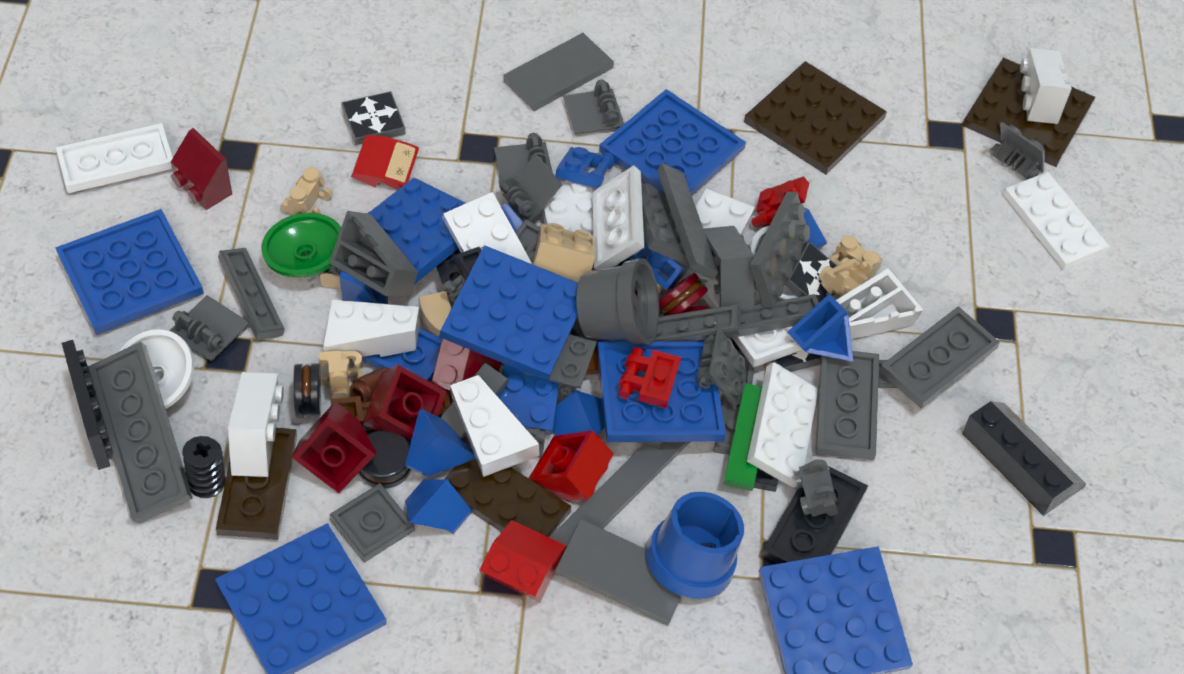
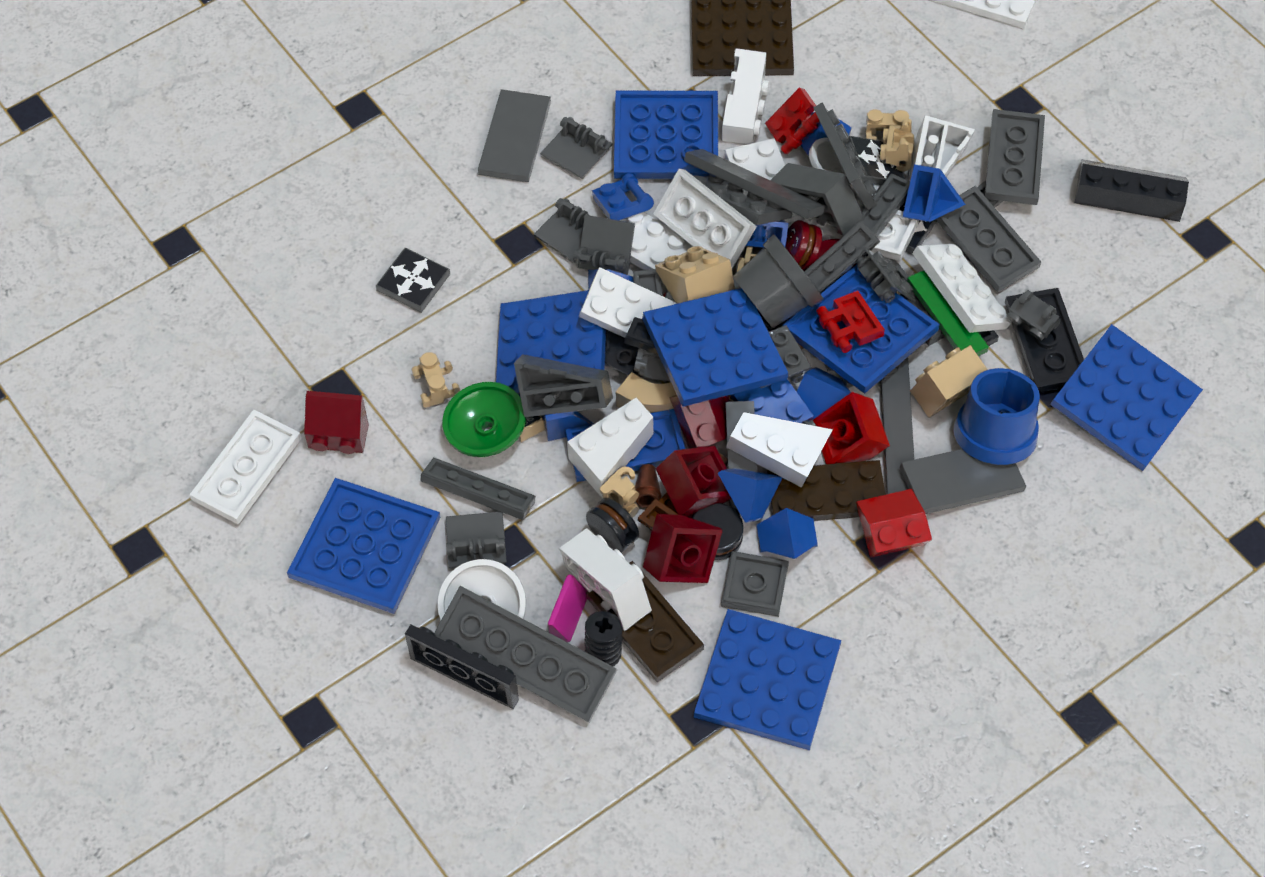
camera: 35 degrees left, 5 degrees up
(210, 423) = (567, 609): none -> dark pink slope
(385, 161) = (464, 308): red slope -> none
(678, 477) = (947, 380): none -> tan brick
(761, 161) = (745, 97): none -> white wedge

